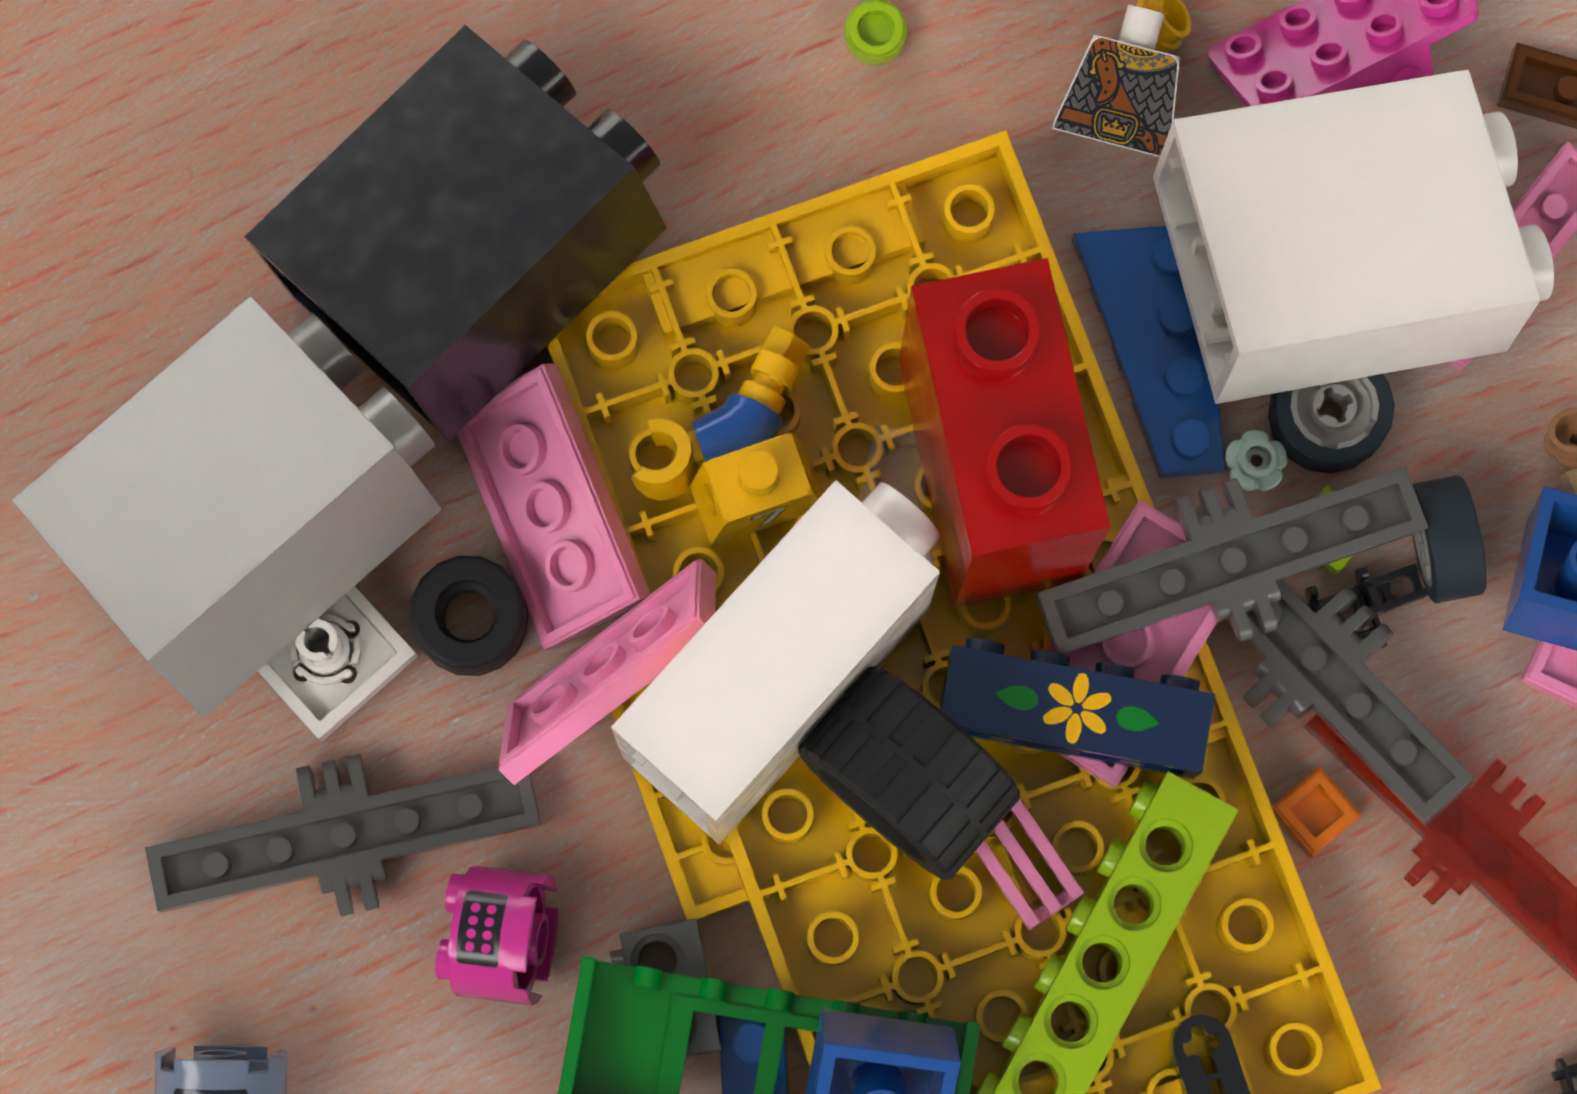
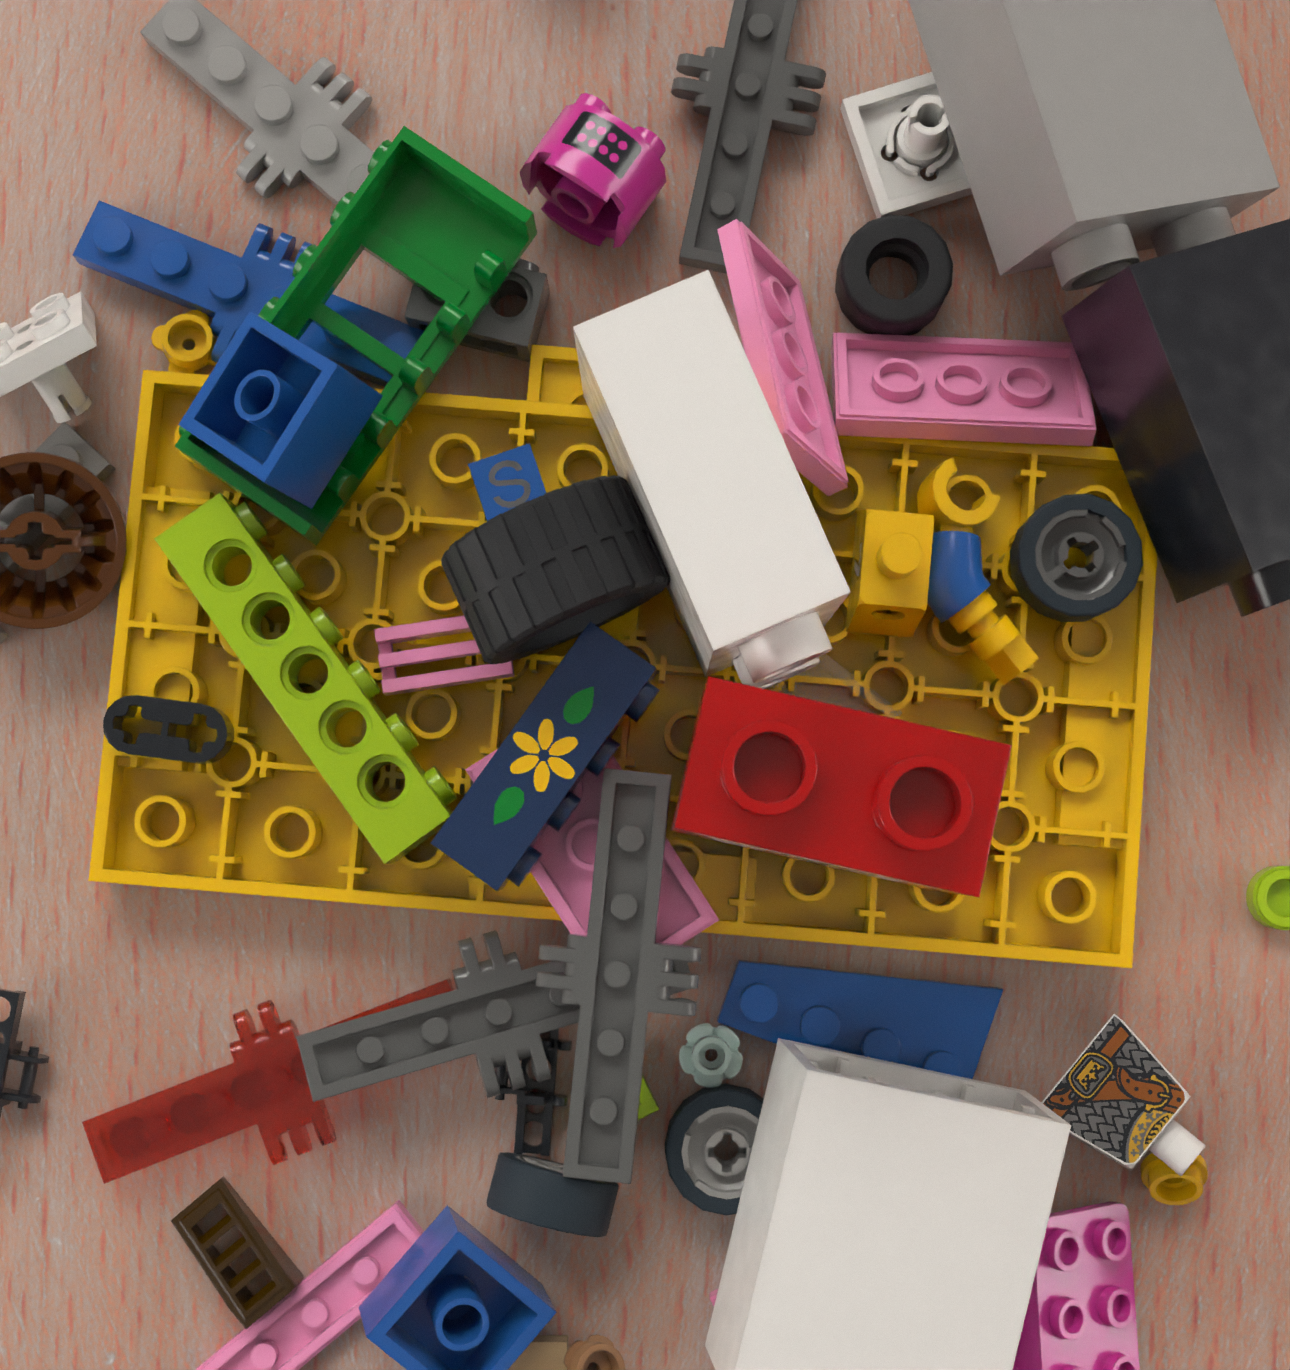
camera: 120 degrees right, 5 degrees up
(679, 363) = (1103, 536): none -> wheel
(837, 870) = (507, 480): none -> blue tile
(1315, 812) = (368, 950): orange tile -> none

